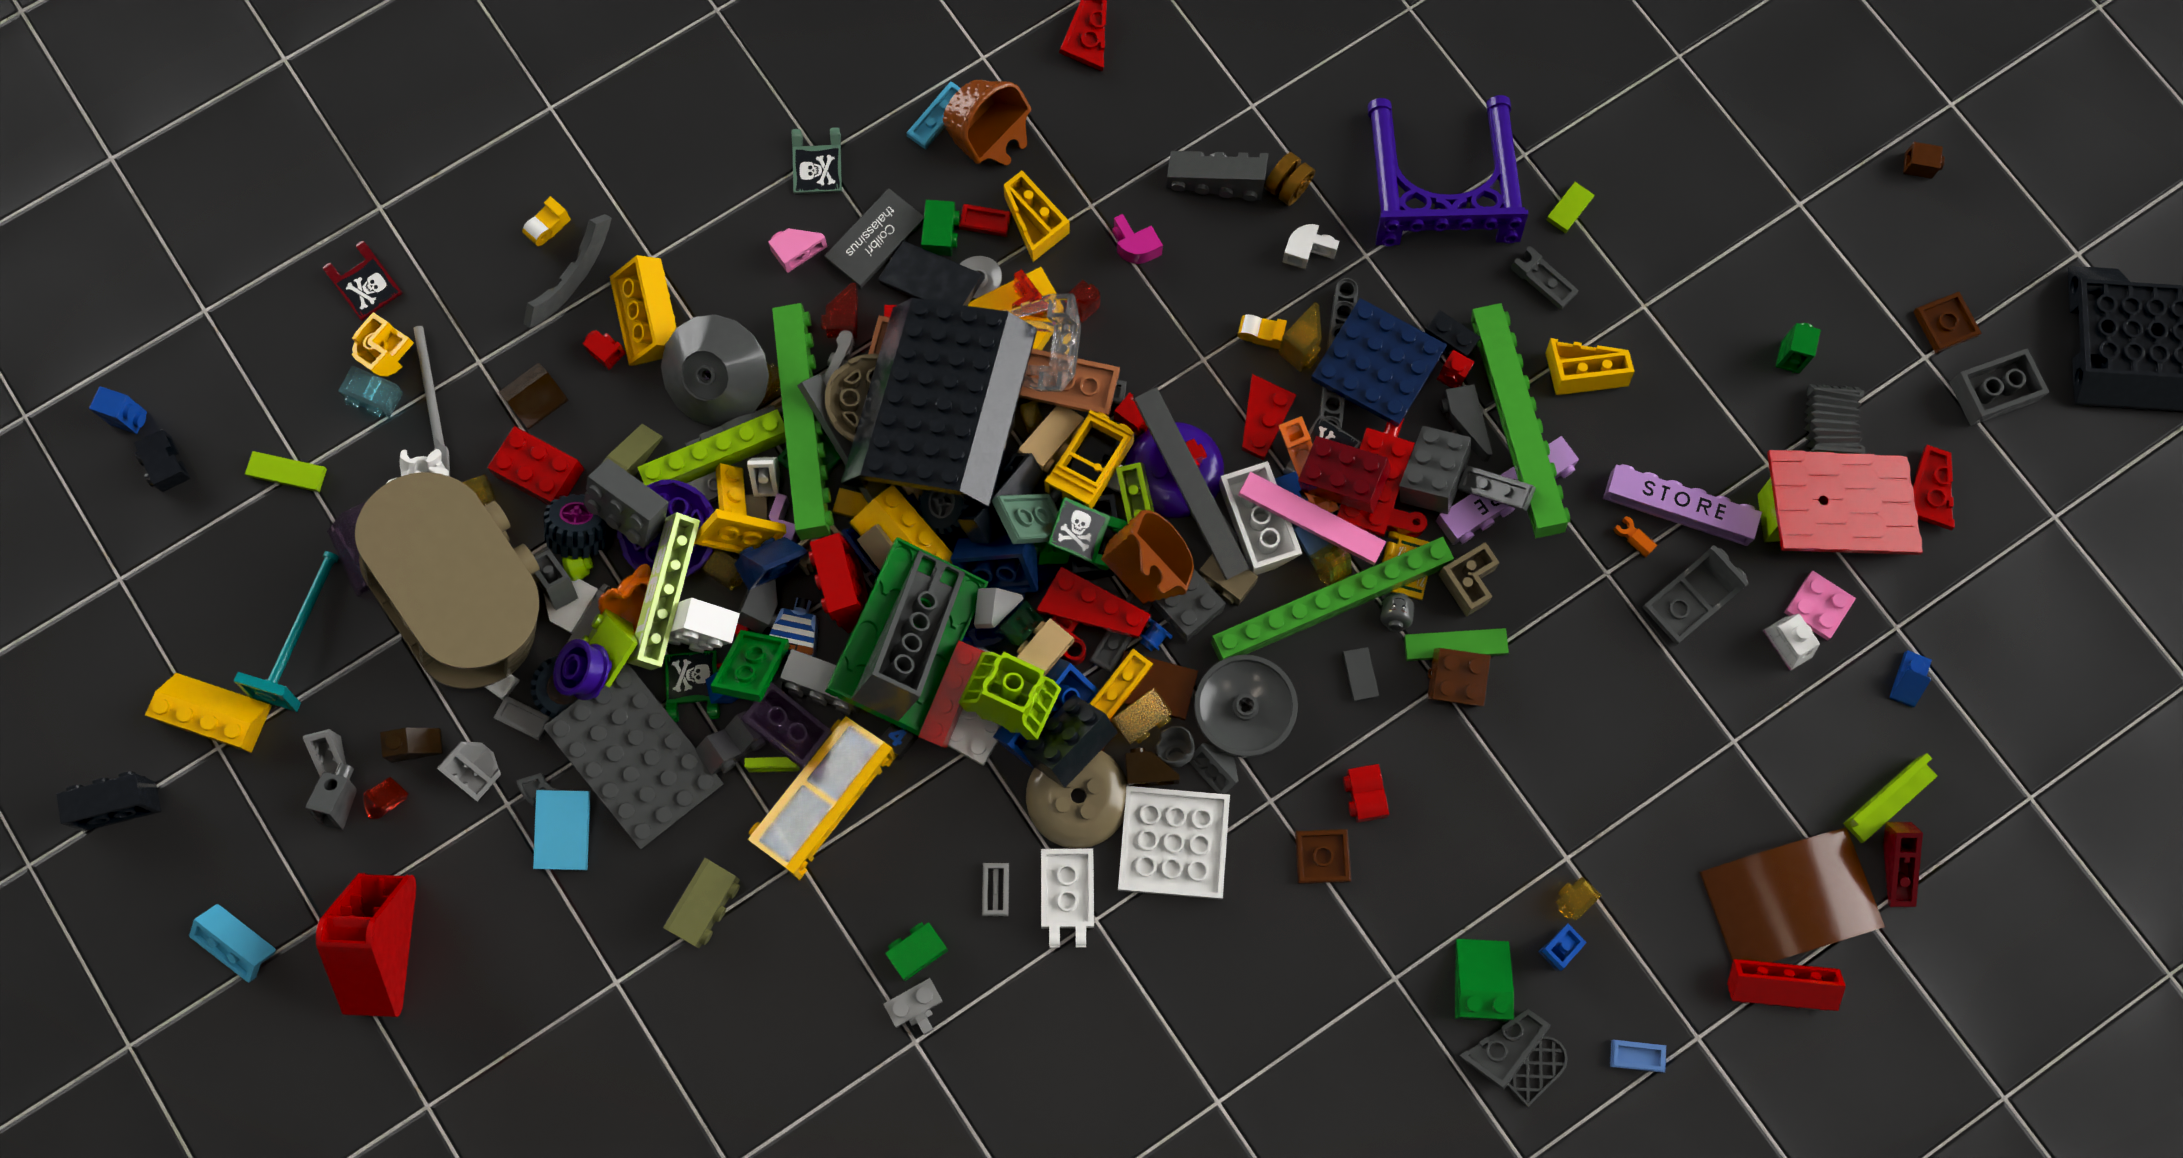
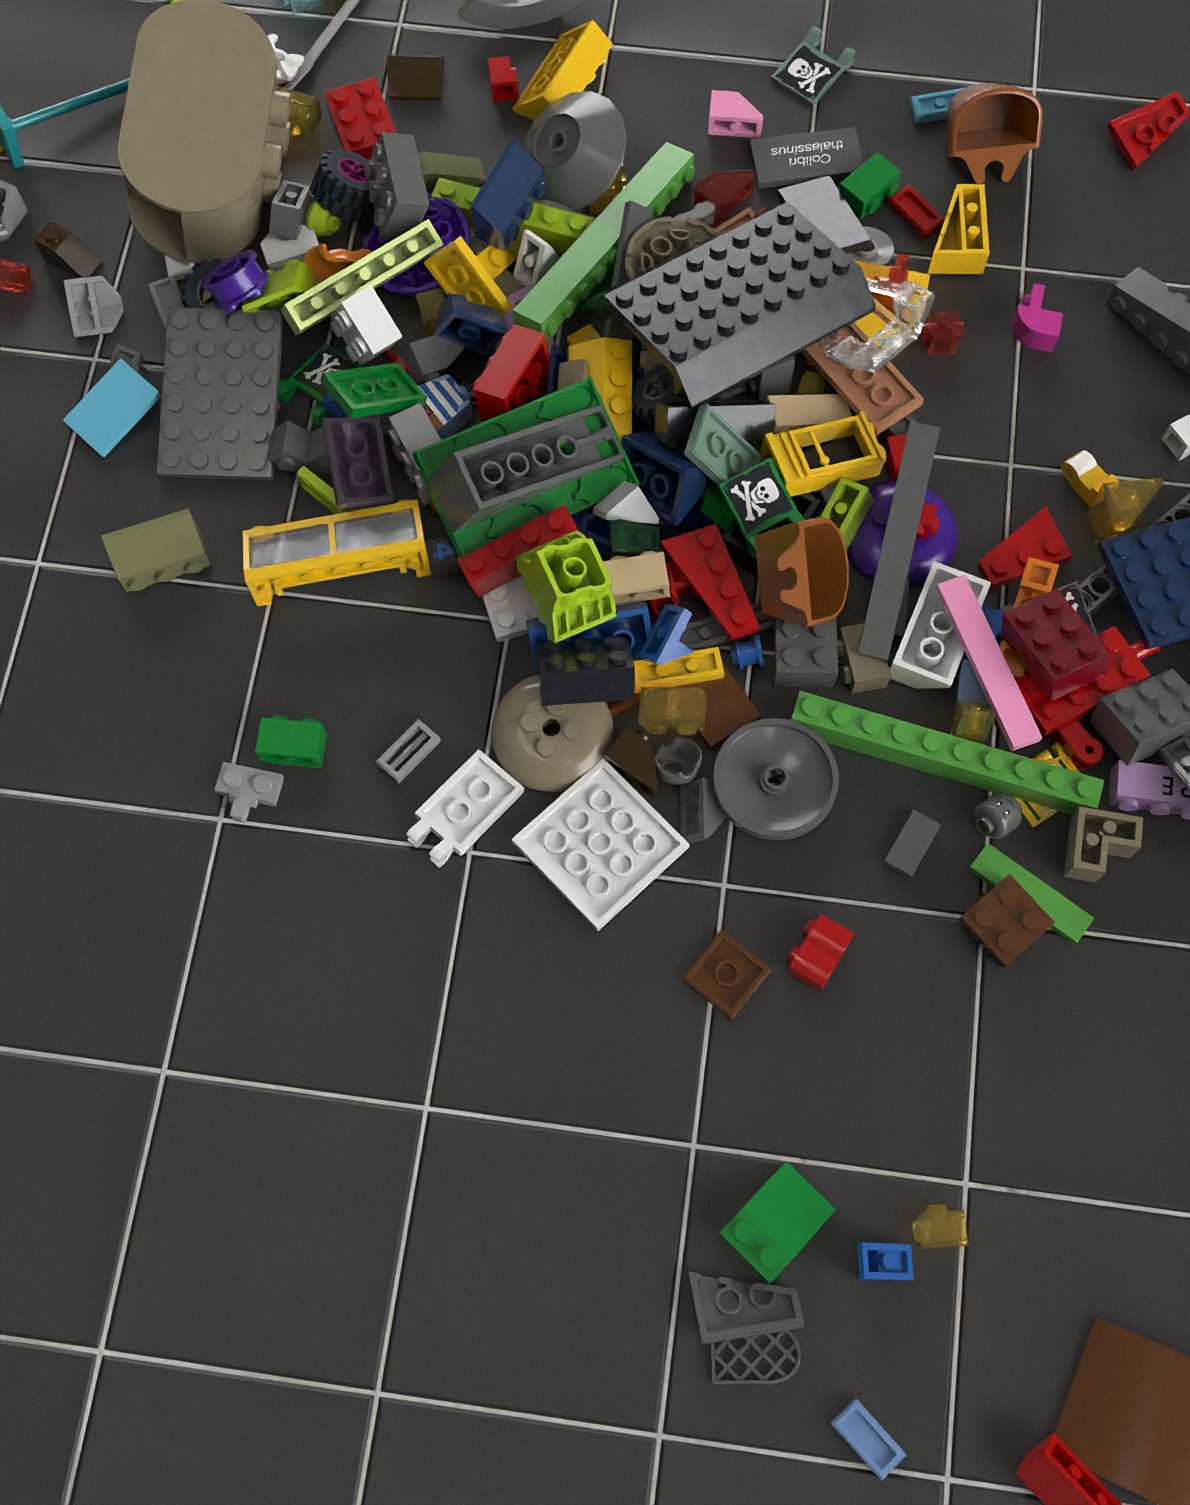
camera: 45 degrees right, 5 degrees down
(713, 447) = (507, 197): none -> dark blue slope
(1098, 676) = (663, 641): none -> blue slope

